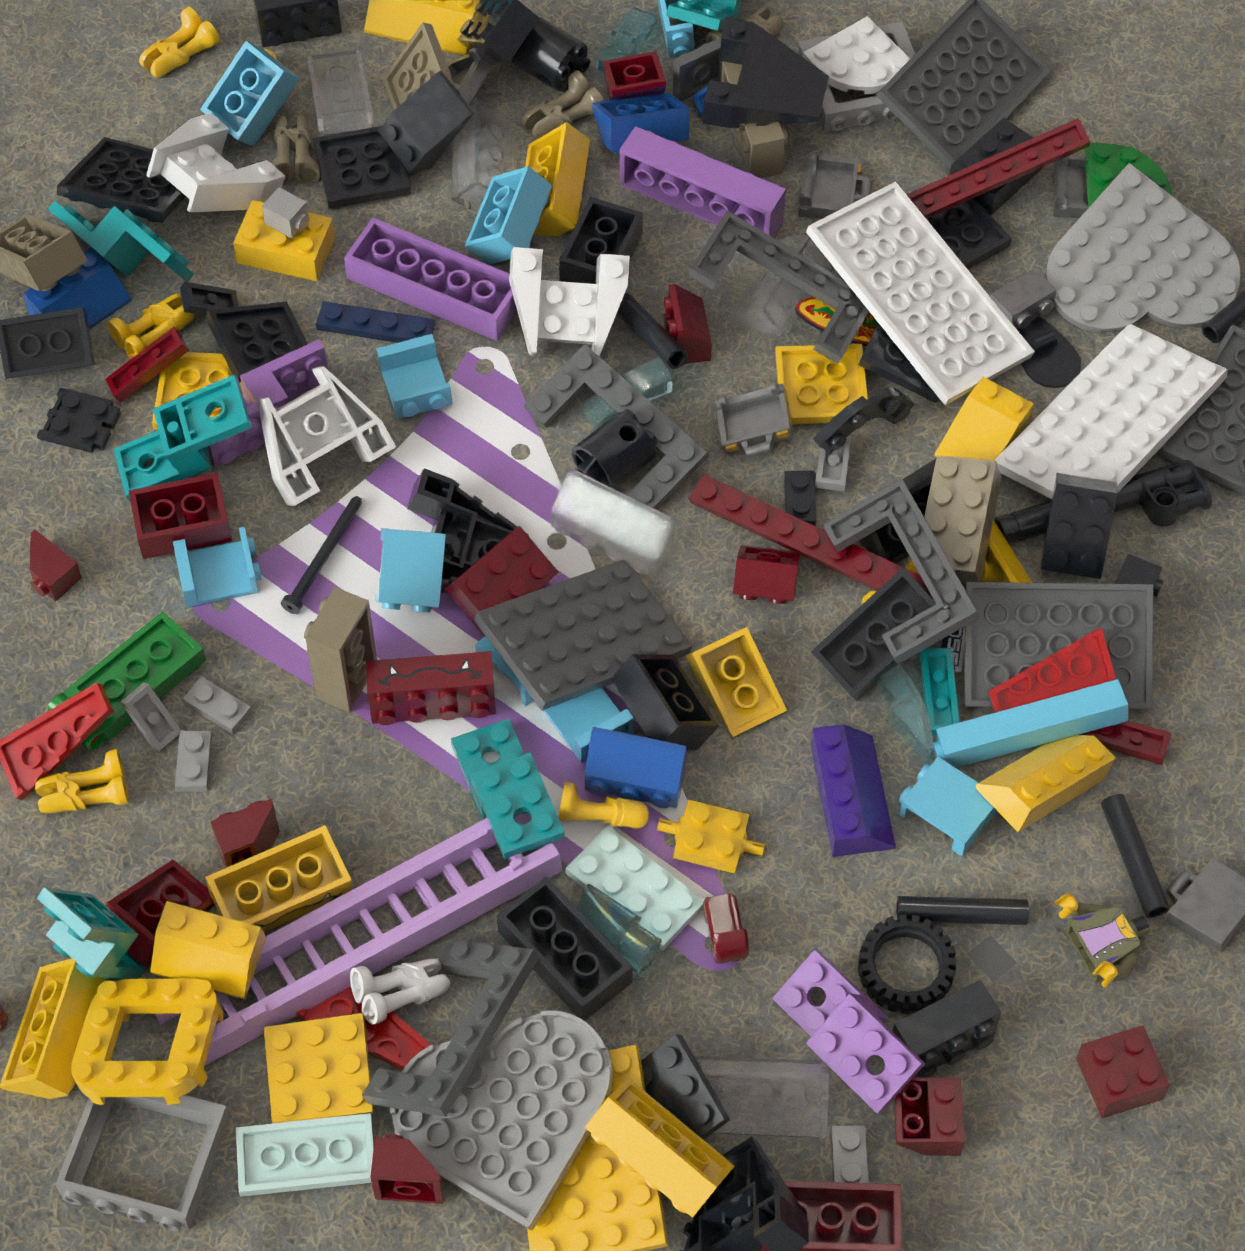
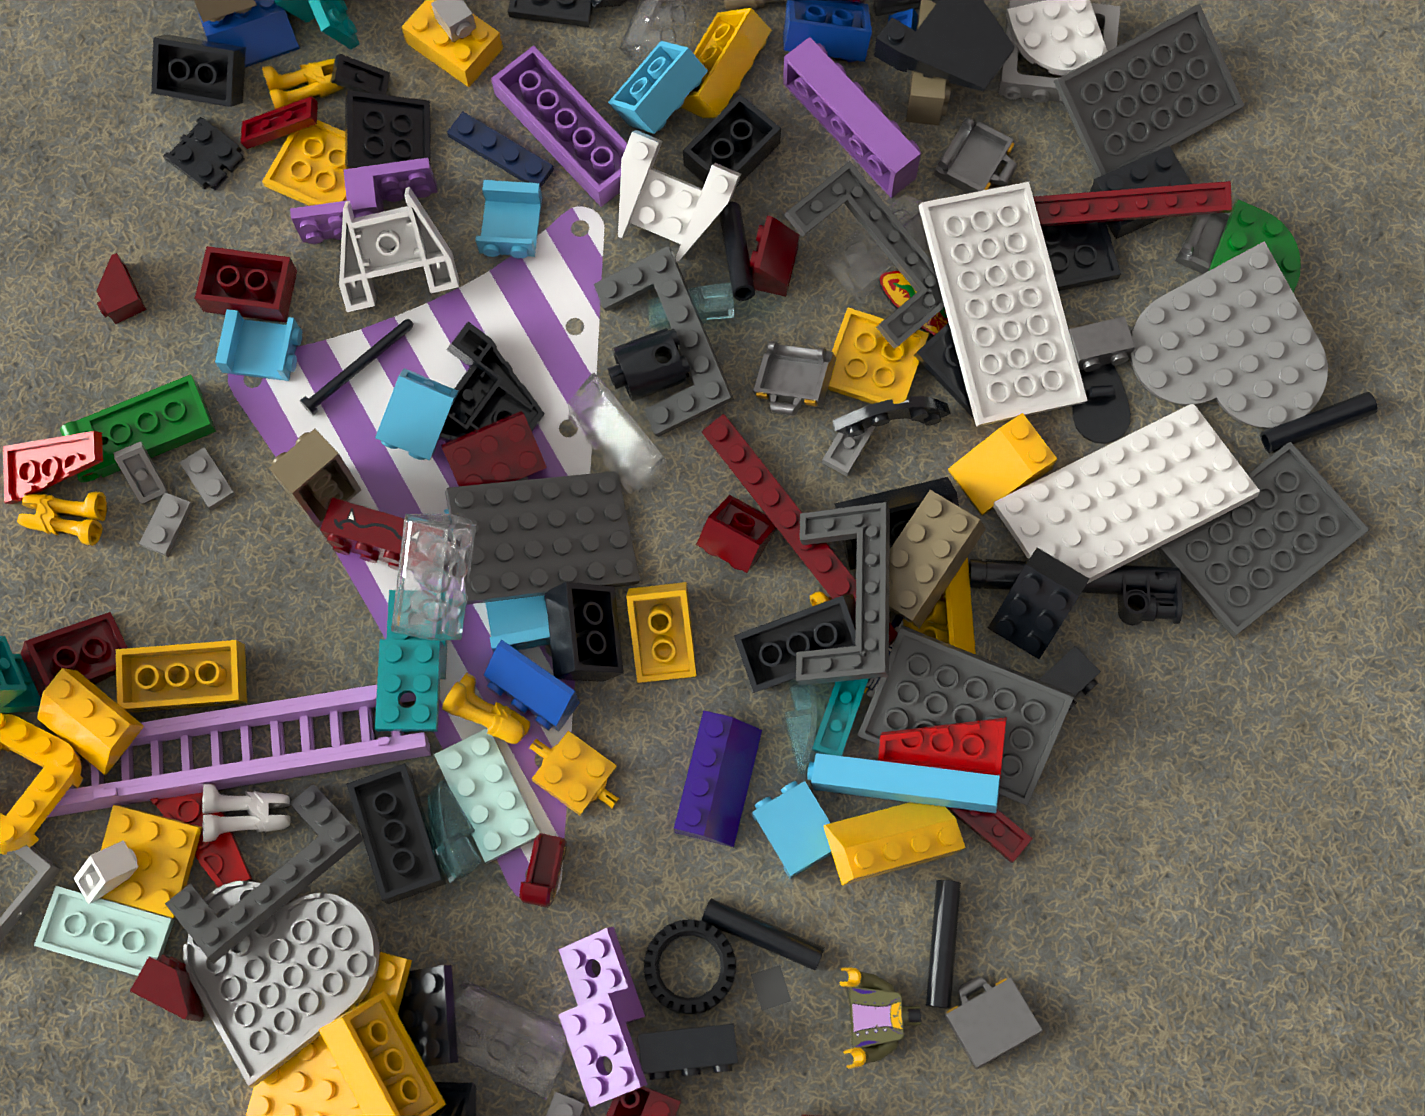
camera: 25 degrees right, 15 degrees up
(183, 435) = (273, 211): teal bracket -> none
(245, 832) = (169, 621): dark red slope -> none
(287, 1086) = (106, 871): none -> white slope
(502, 691) = (433, 576): none -> clear slope
(800, 495) = (803, 468): black plate -> none

